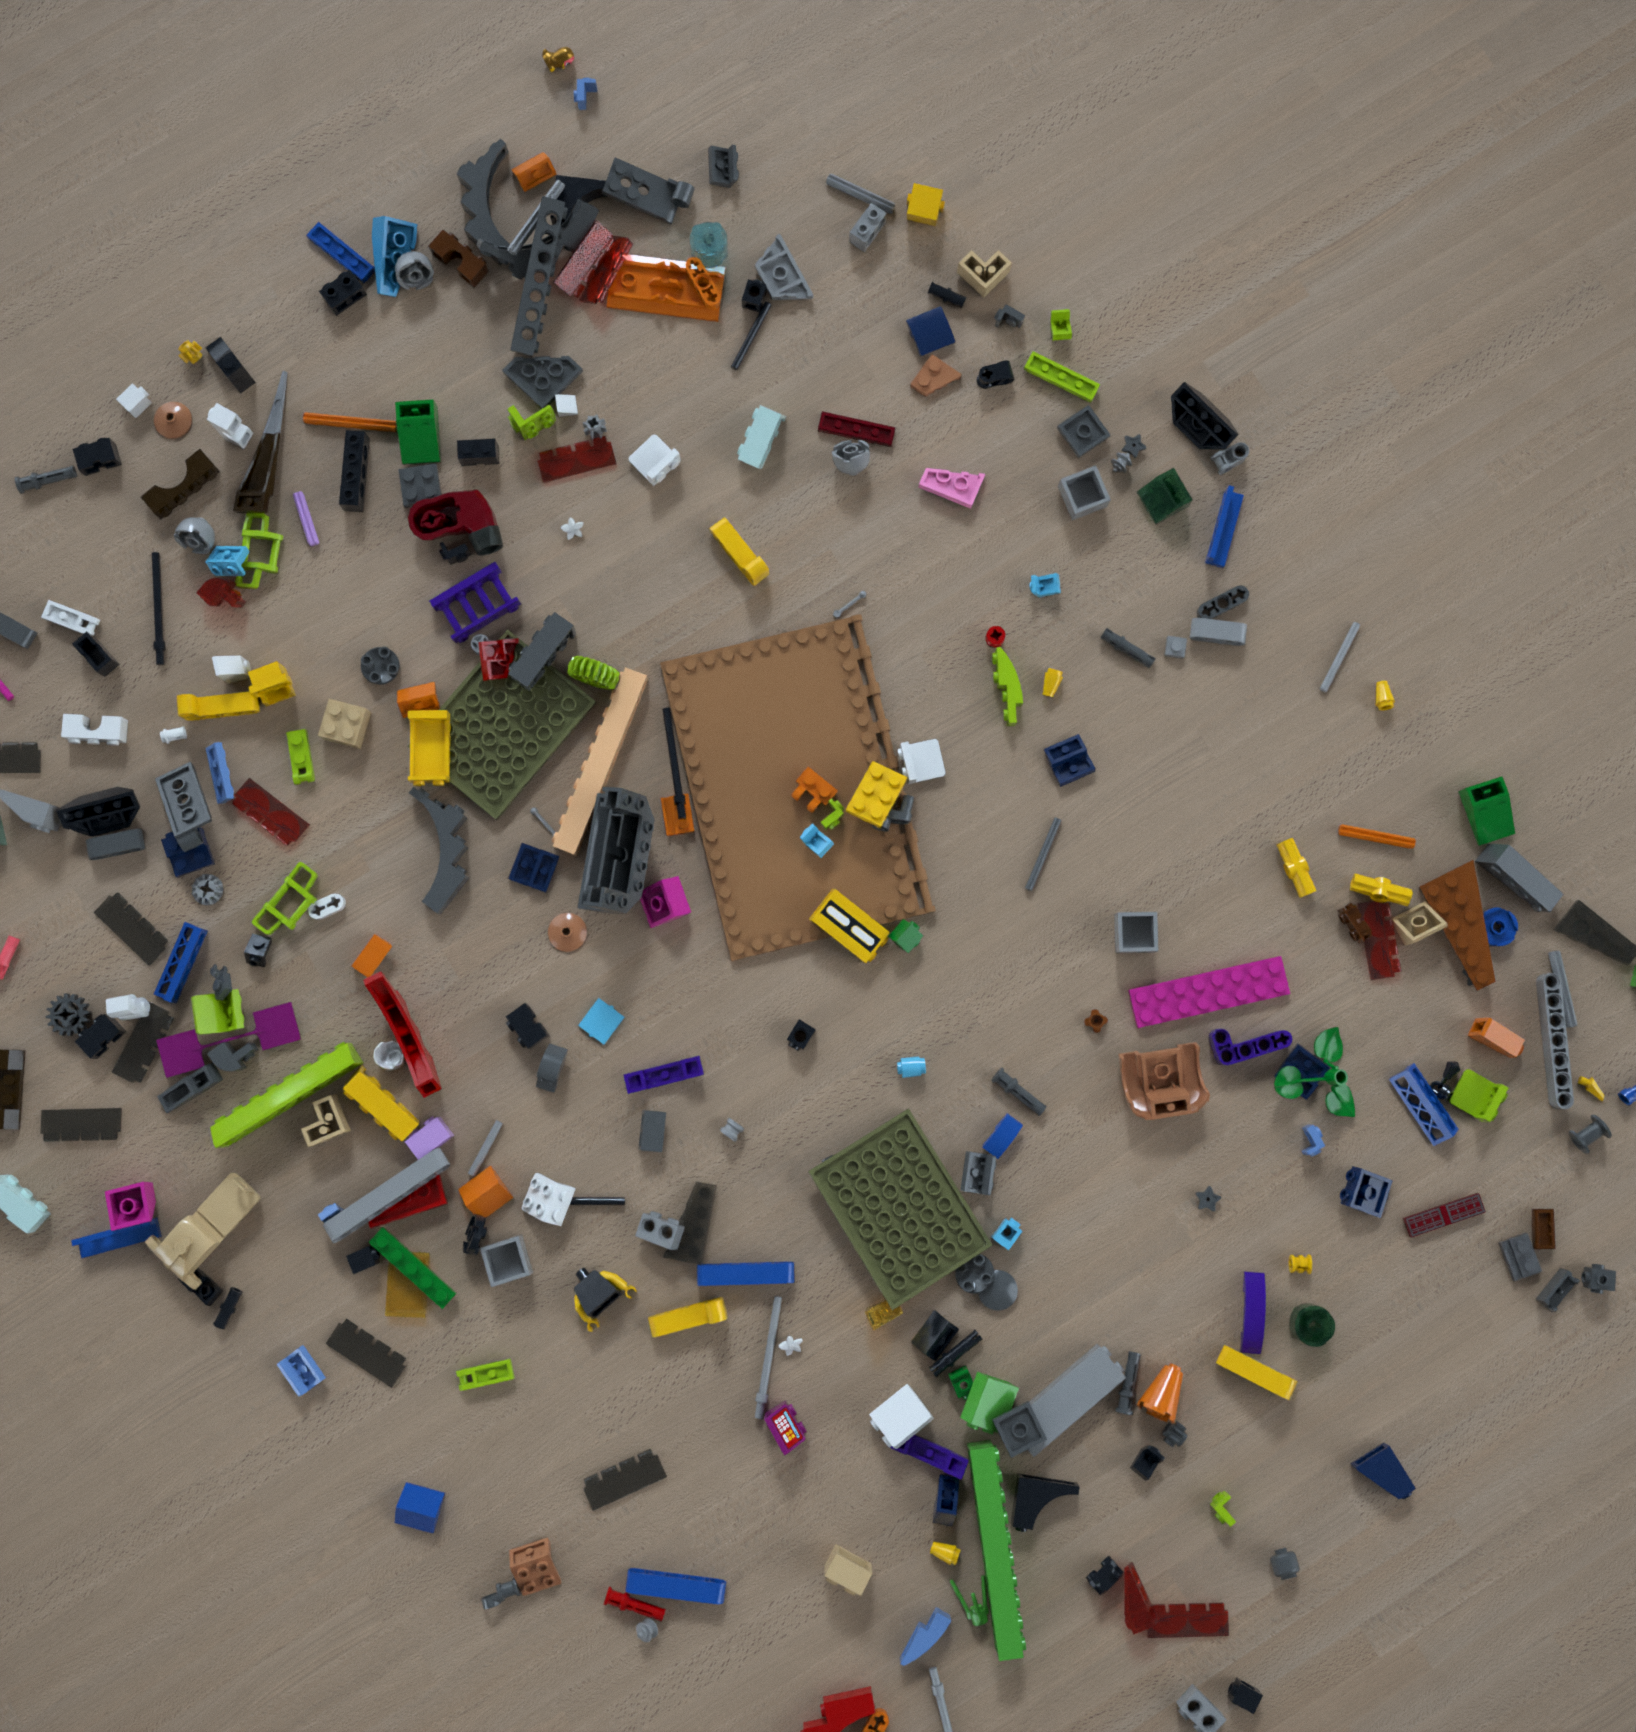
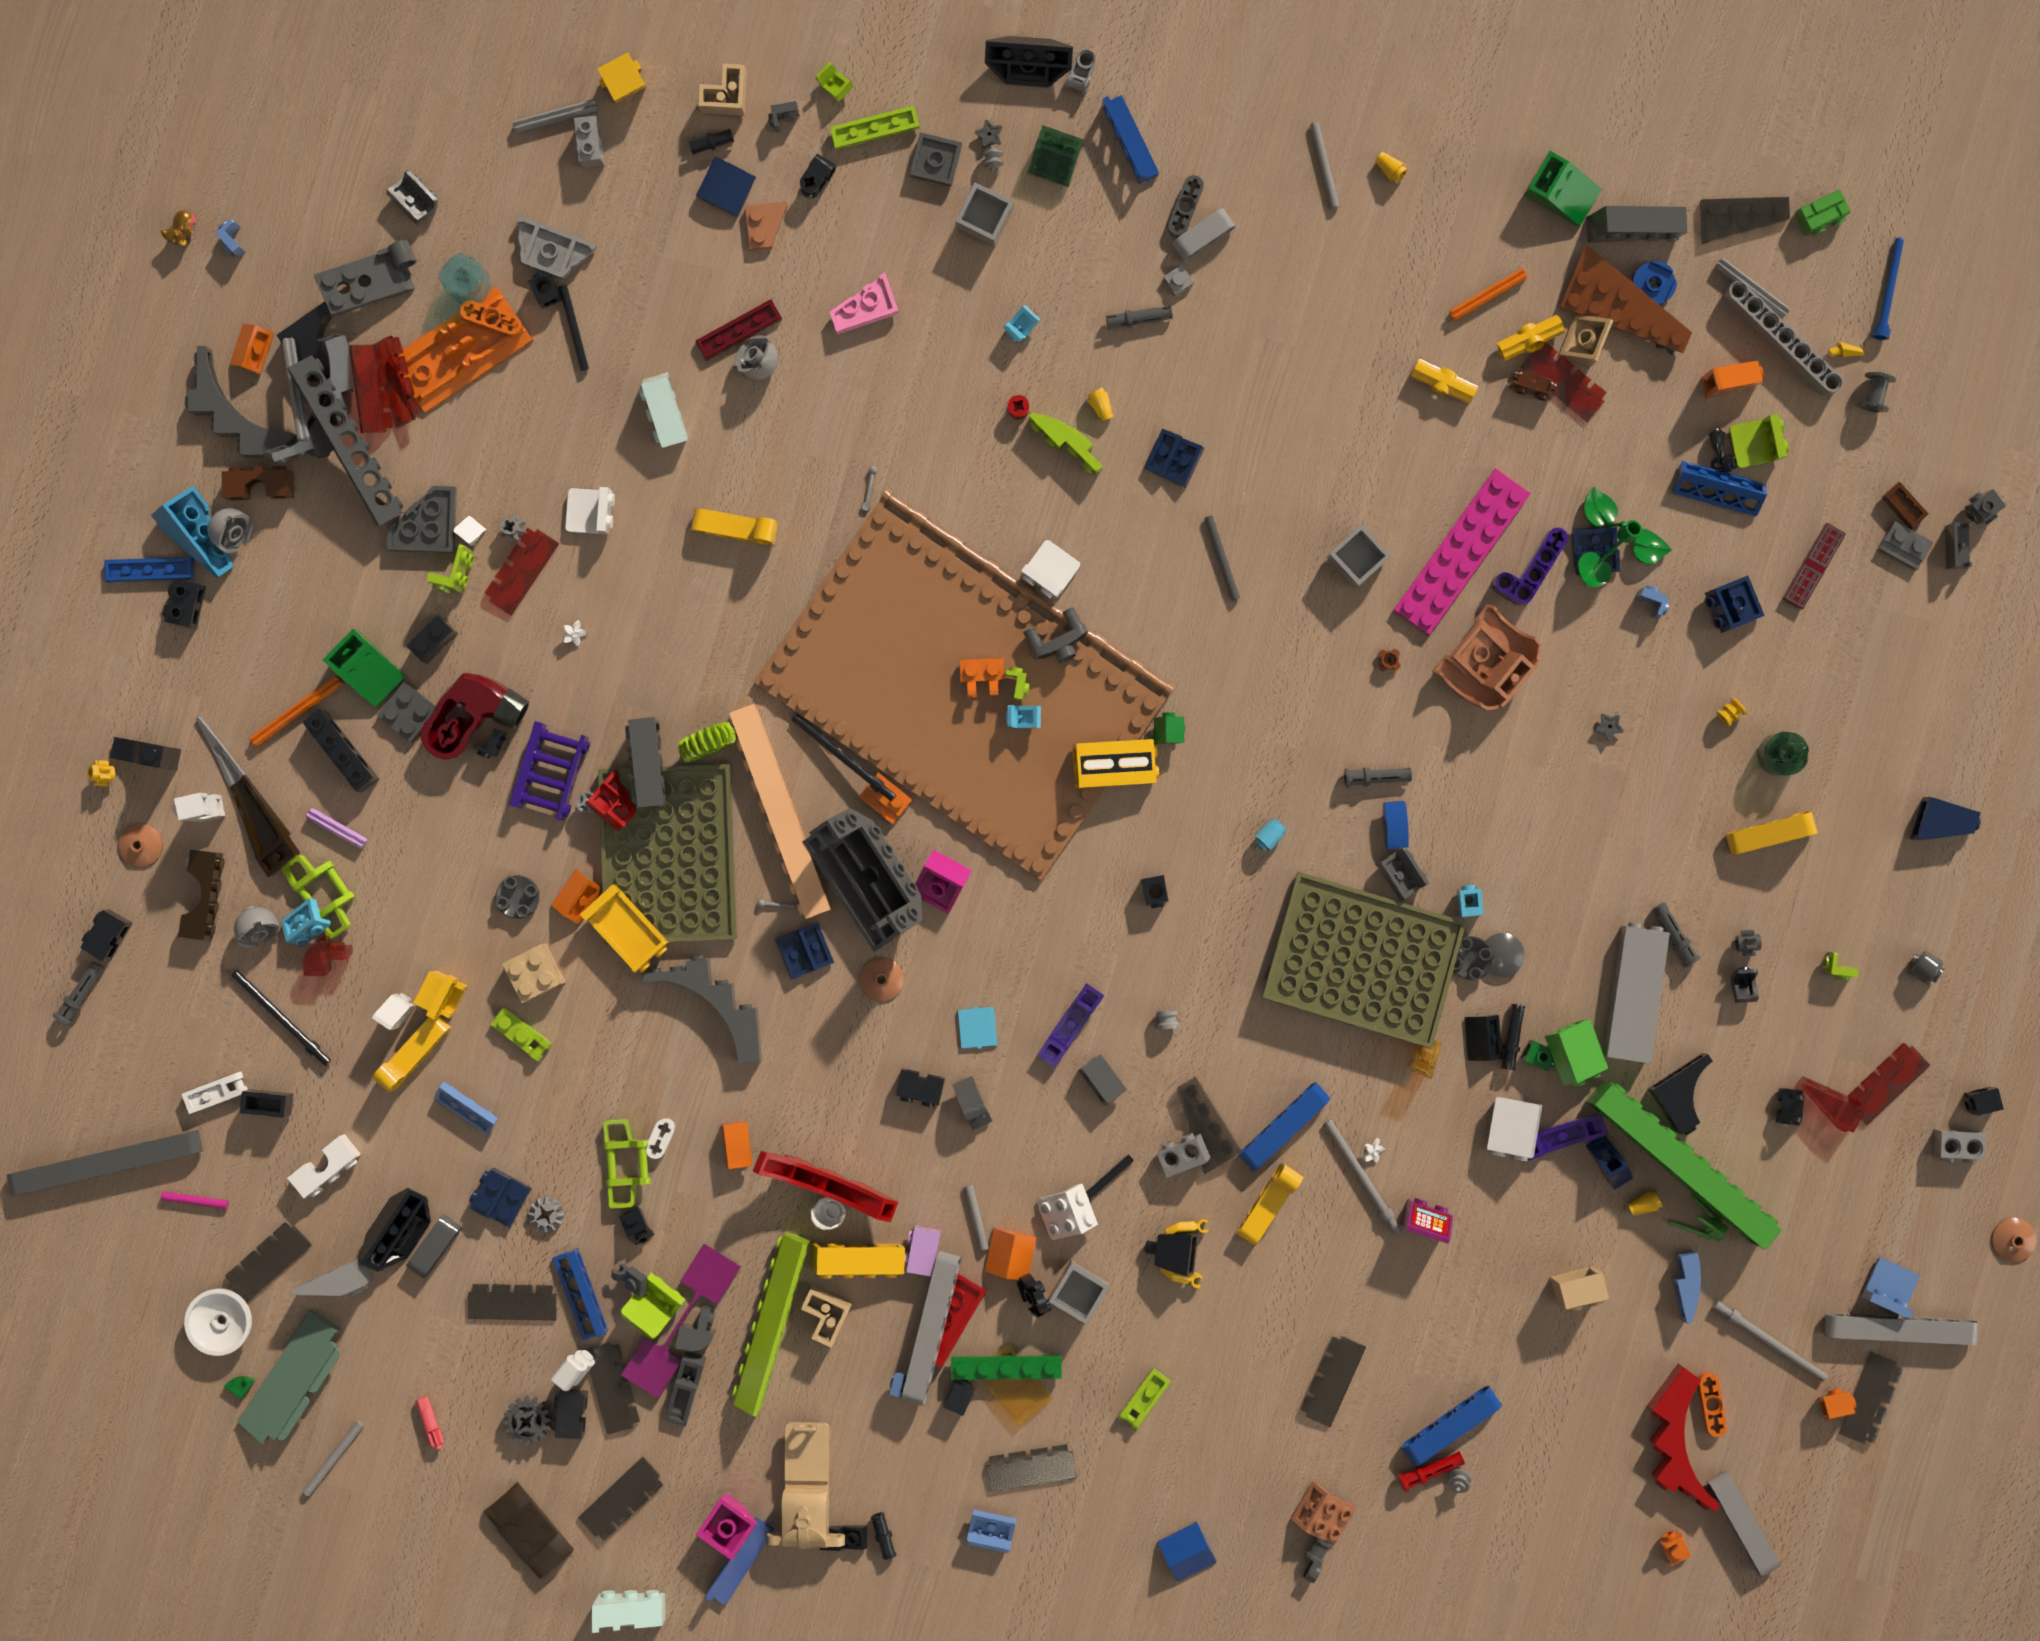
camera: 40 degrees left, 5 degrees up
(134, 400) = (92, 857): white brick -> none
(173, 734) = (395, 1112): white pin -> none
(190, 815) = (477, 1162): dark grey hinge -> none
(267, 807) = (534, 1100): clear red windscreen -> none
(876, 794) = (1040, 633): yellow plate -> none
(1019, 1429) = (1619, 1051): dark grey plate -> none
(1163, 1394) = (1711, 918): orange cone -> none
(1254, 1312) = (1727, 785): dark purple slope -> none

